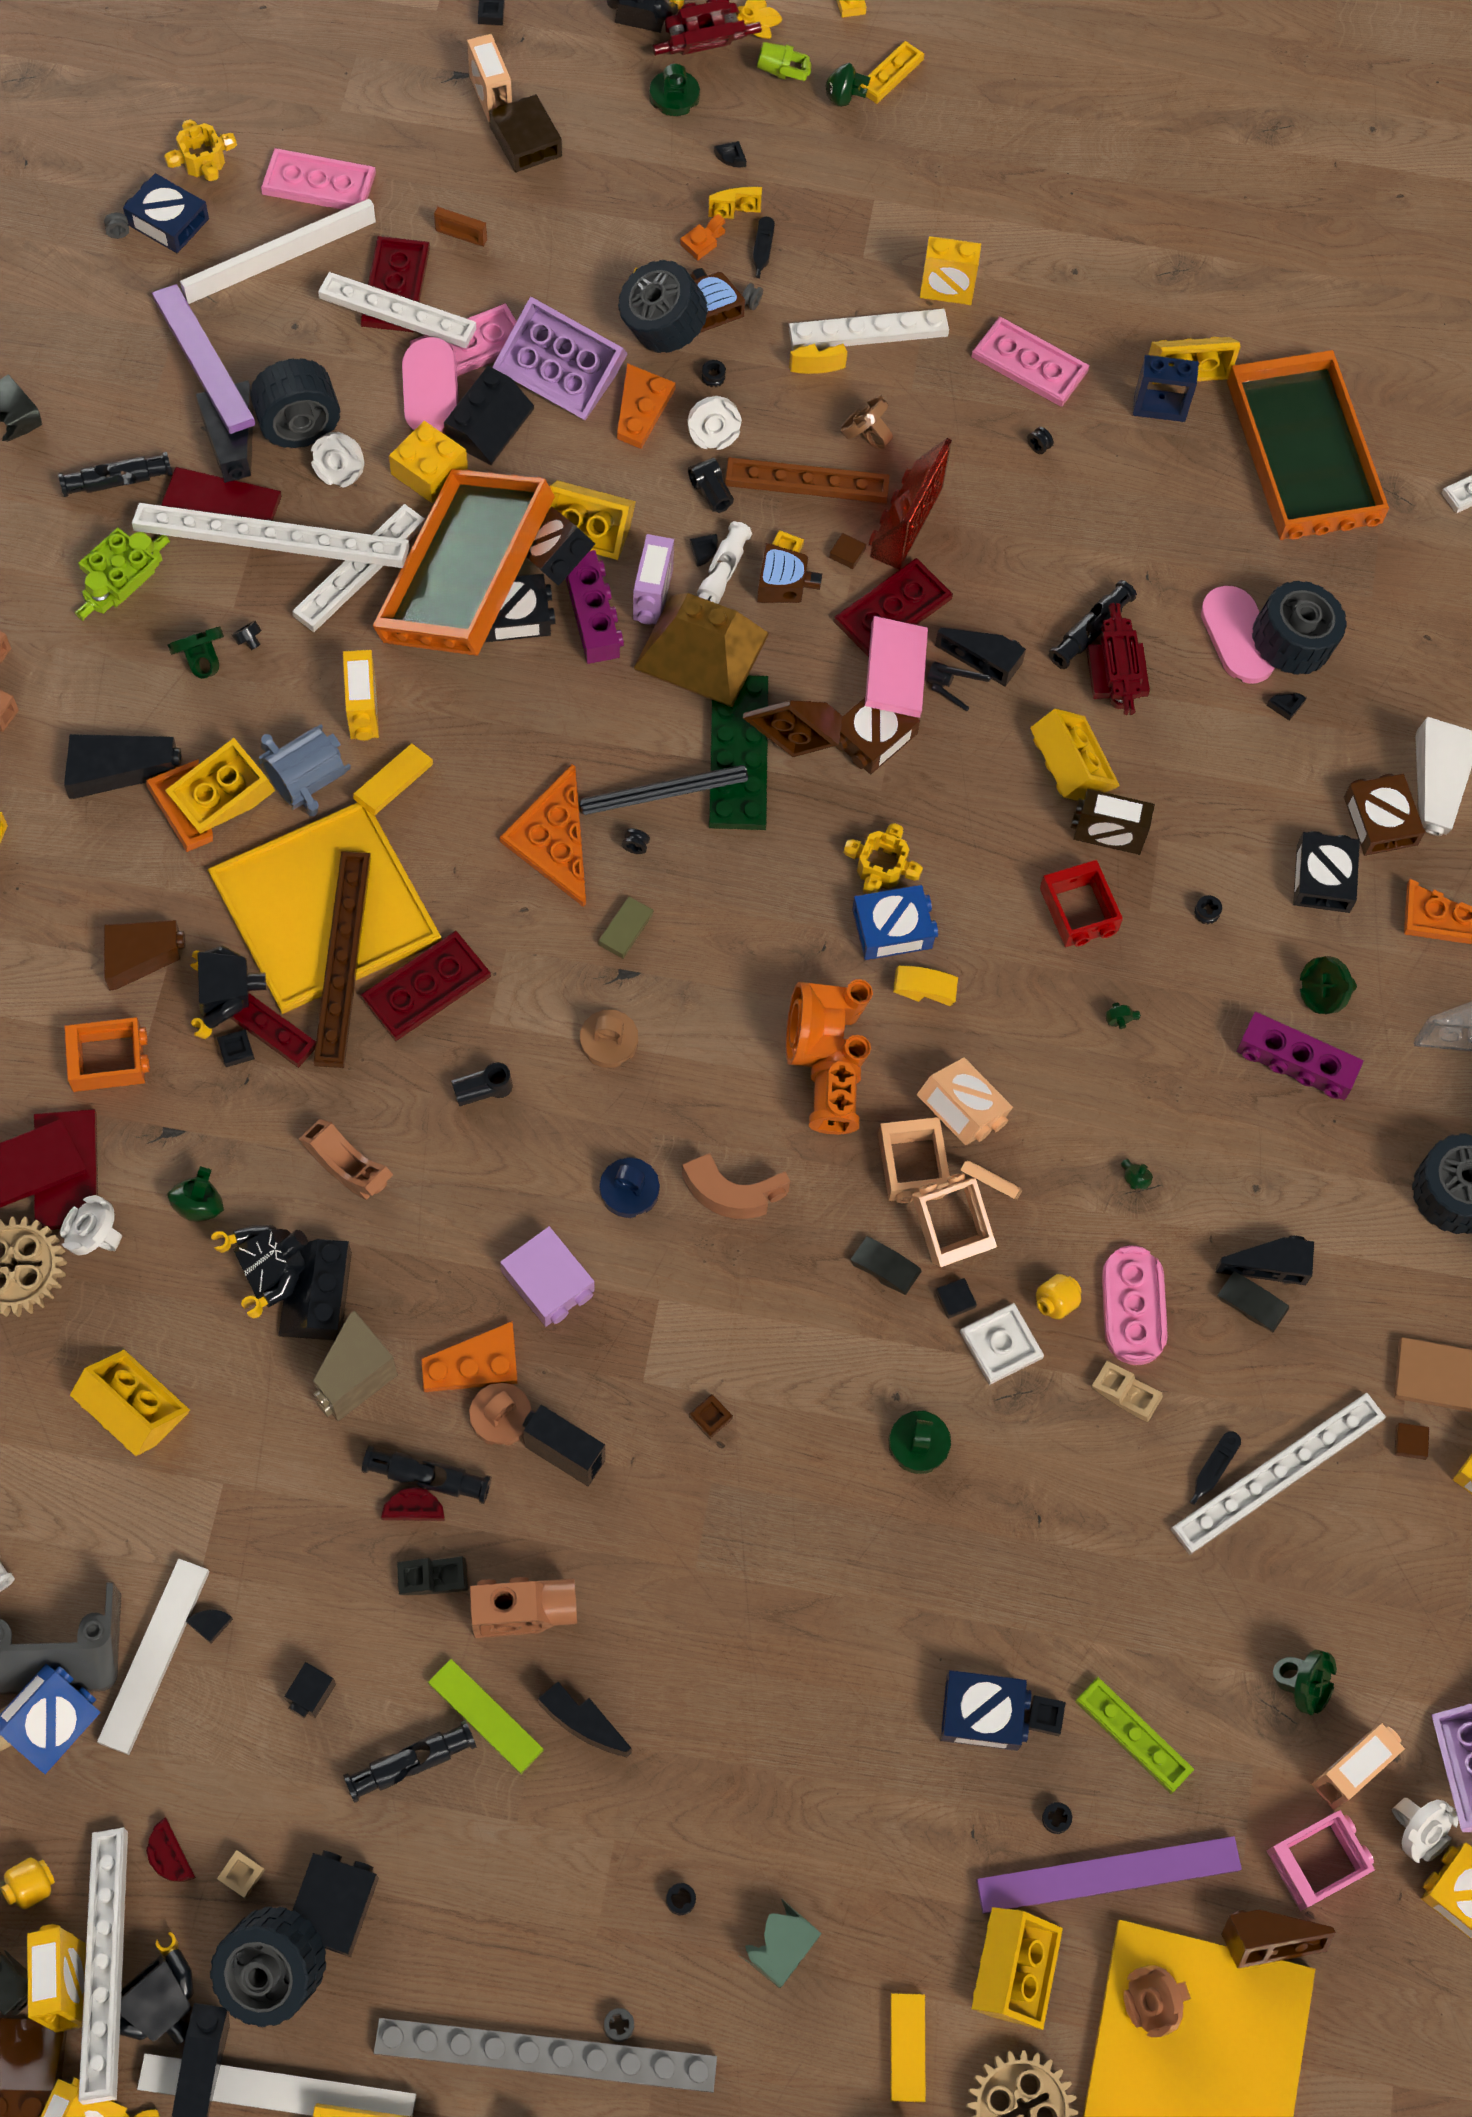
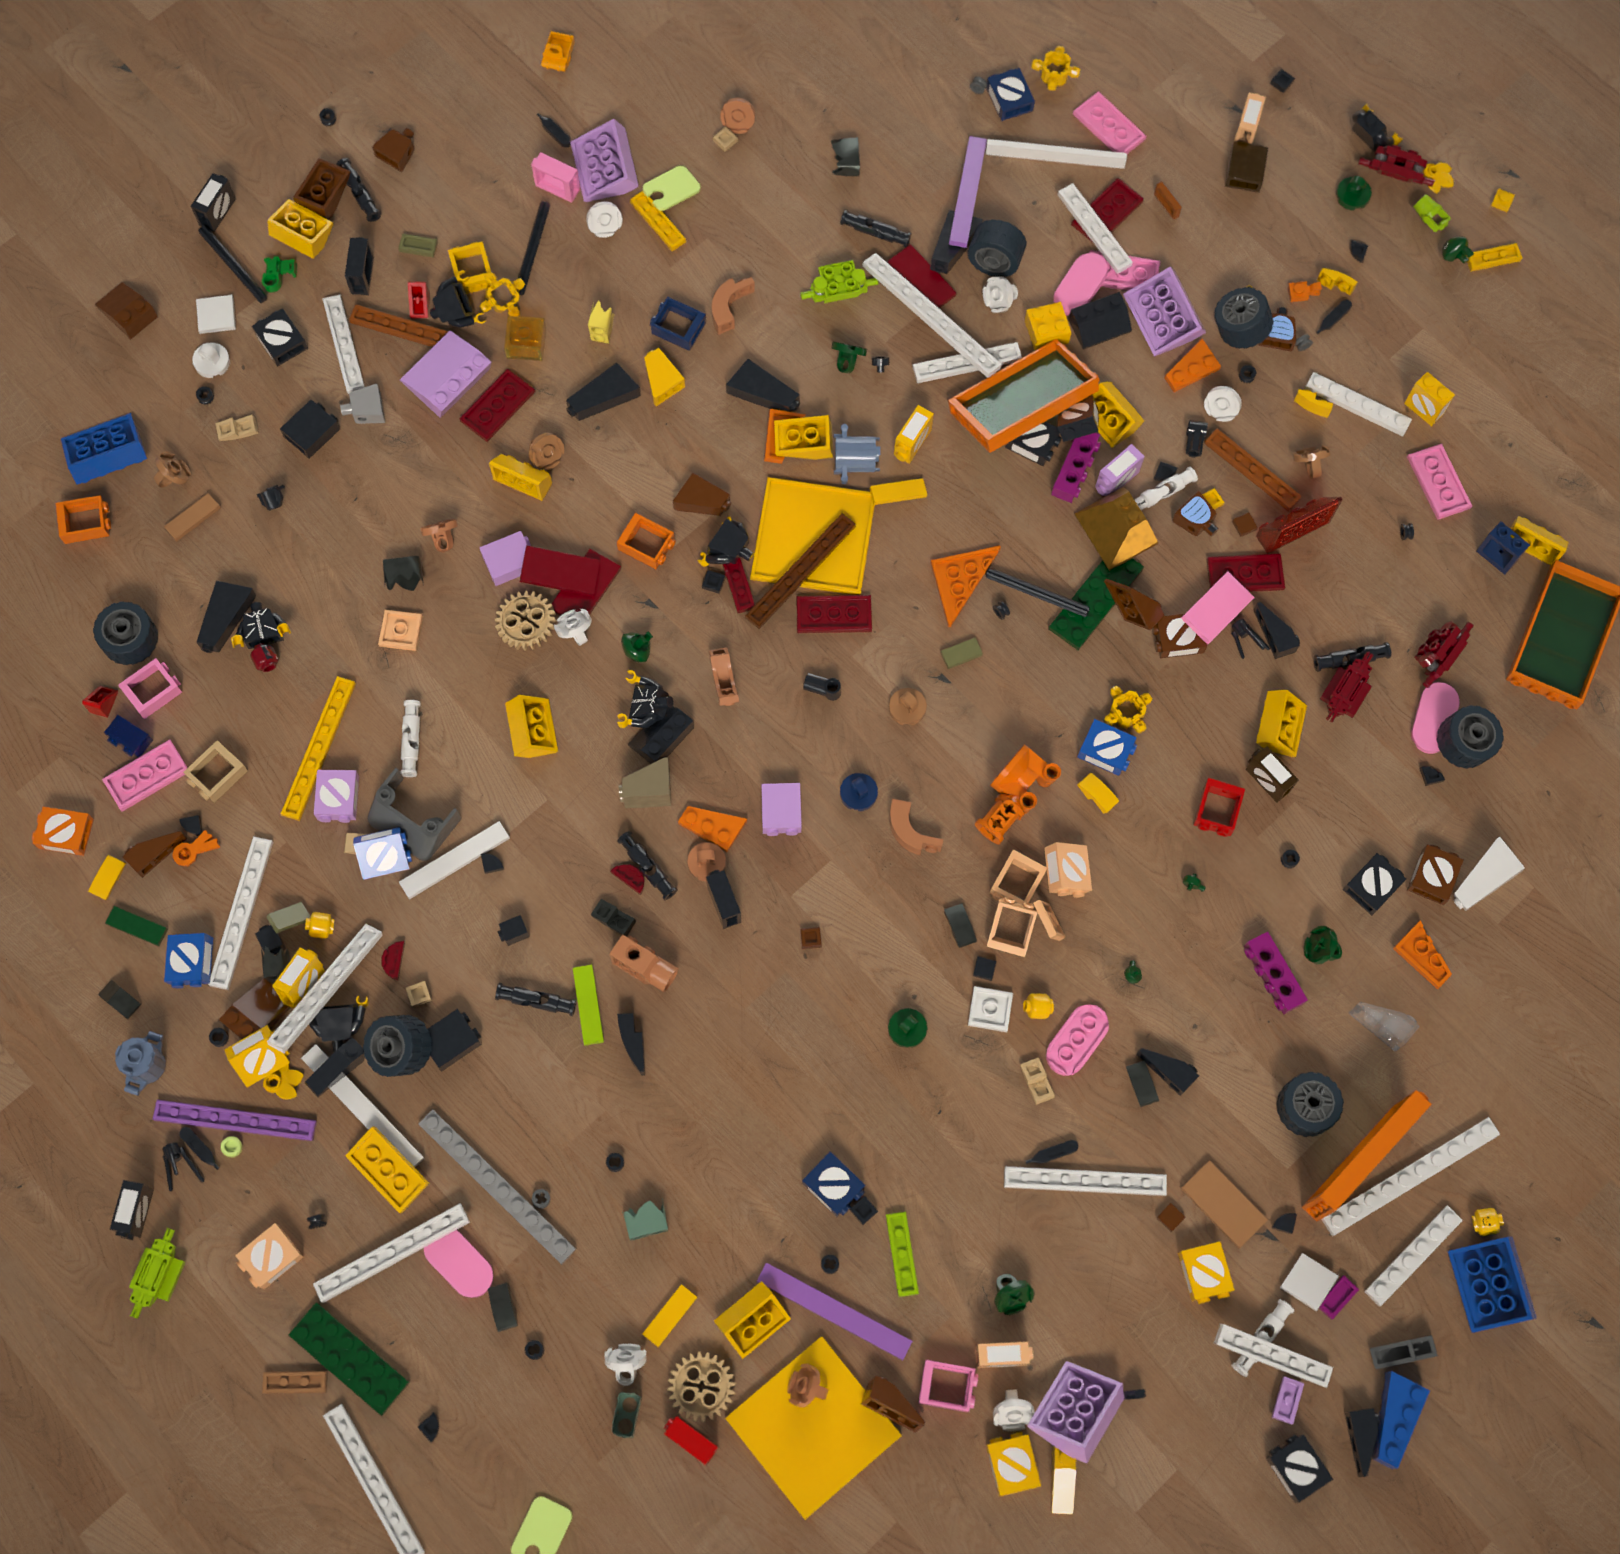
camera: 40 degrees right, 5 degrees up
(1188, 549) = (1442, 650): none -> dark red piece

